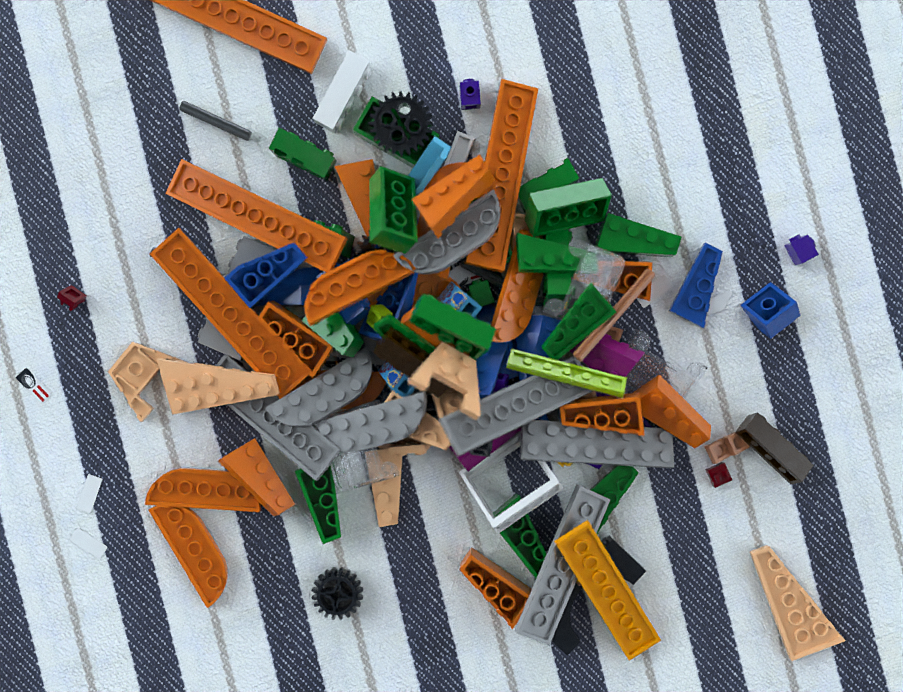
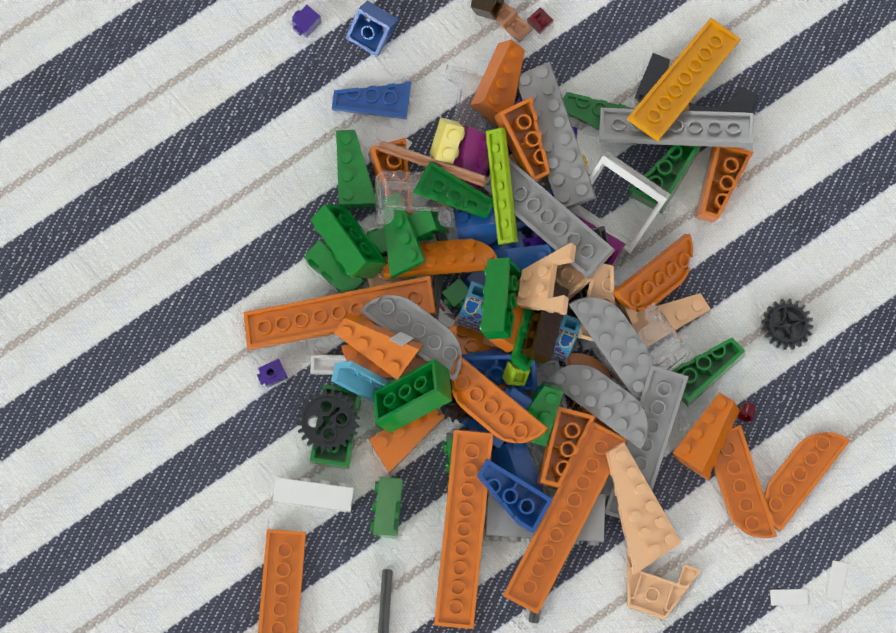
camera: 115 degrees left, 10 degrees down
(271, 522) = (748, 409): none -> dark red piece
(424, 488) = (657, 277): none -> orange plate
(448, 215) = (401, 338): none -> white sticker
(631, 337) = (447, 140): none -> light yellow brick

